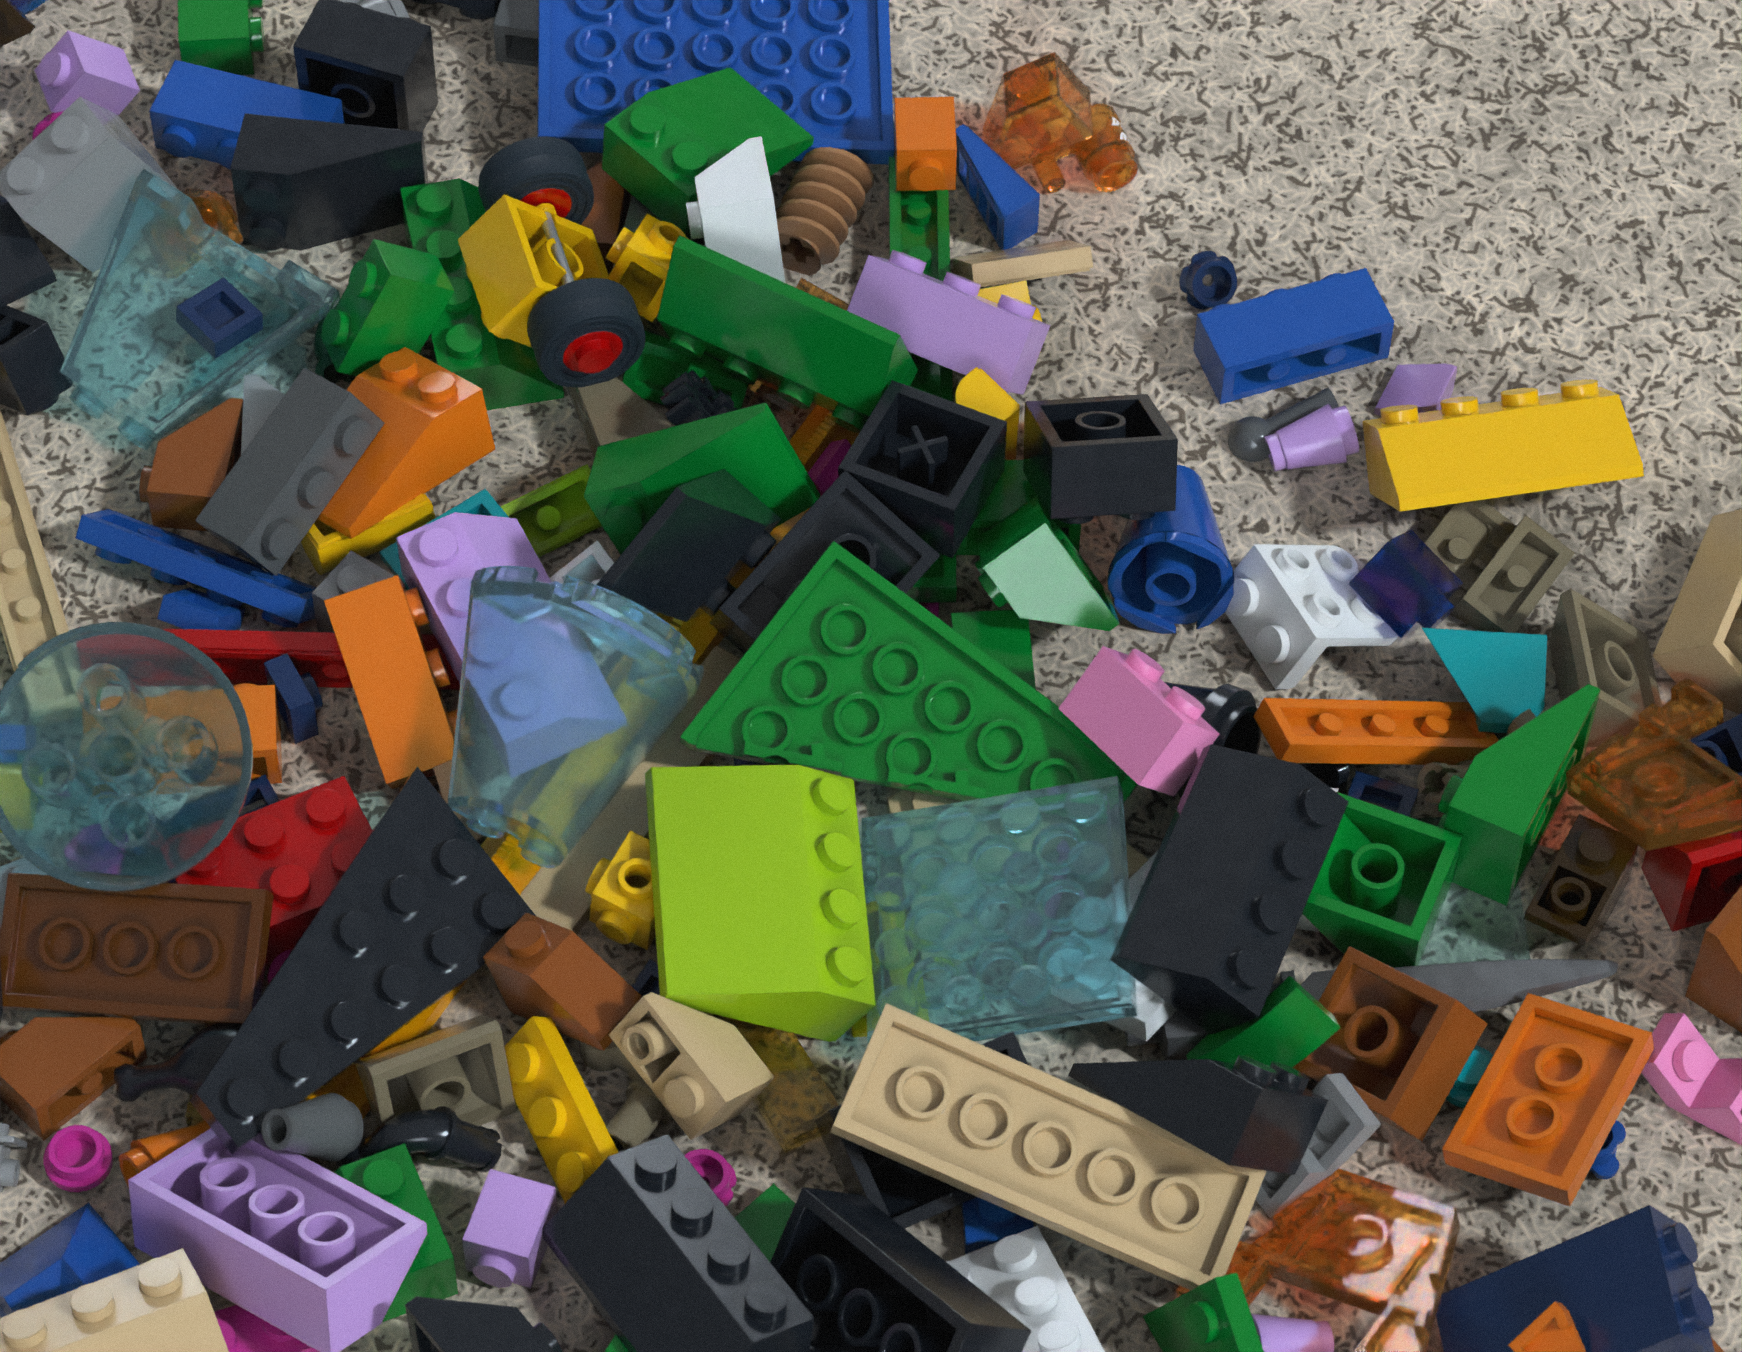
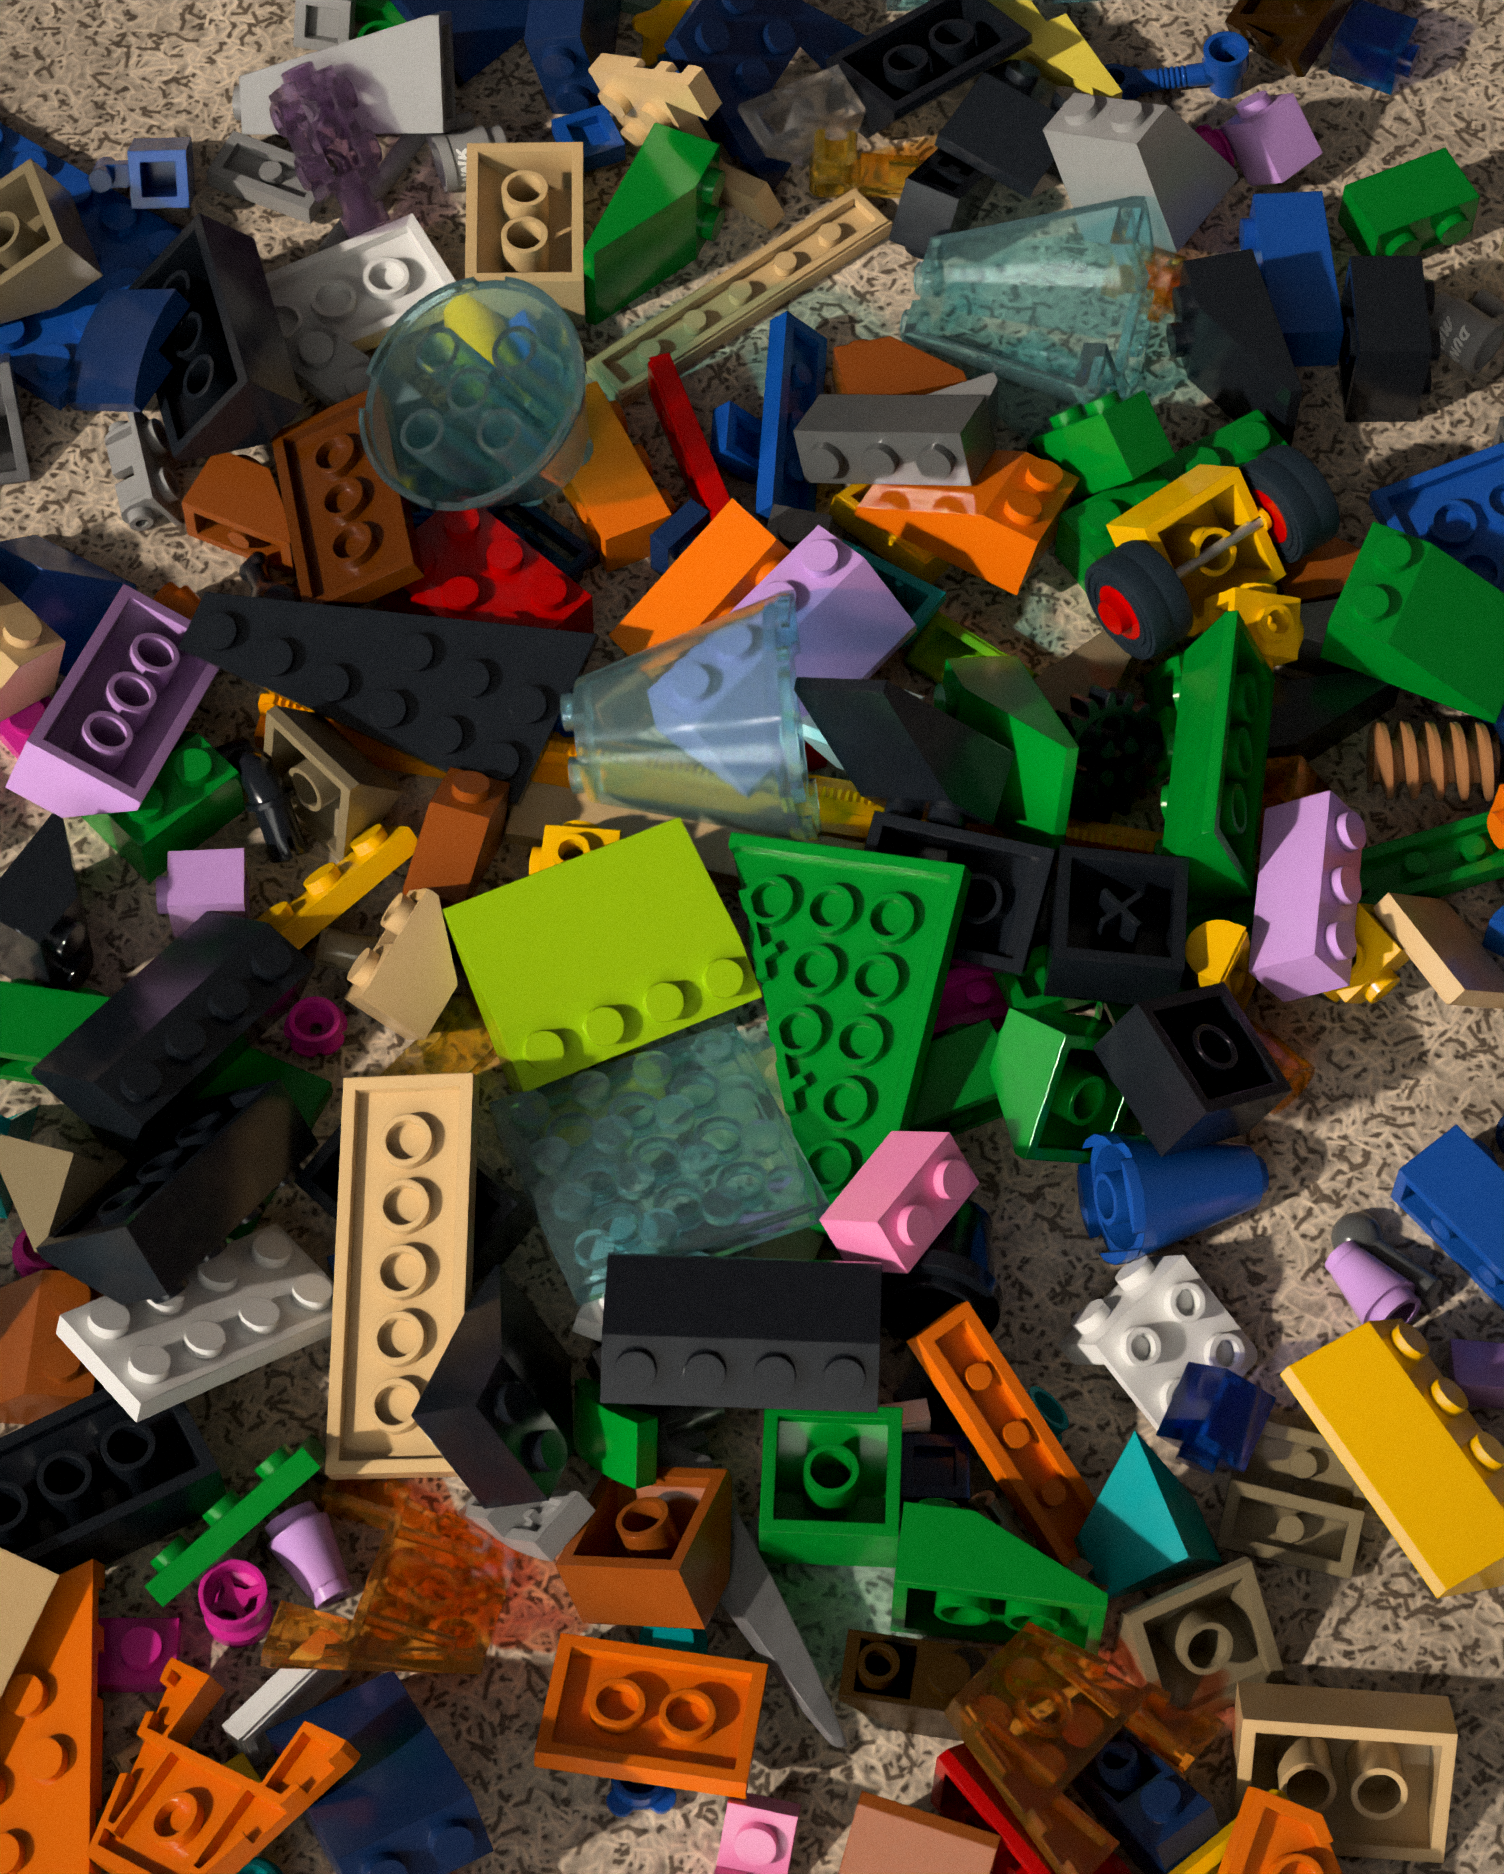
camera: 70 degrees right, 5 degrees up
(77, 1158) = (170, 558): dark pink plate -> none
(219, 317) = (1053, 333): dark blue plate -> none
(318, 1127) = (228, 700): dark grey cone -> none
(738, 209) = (1326, 678): white slope -> none

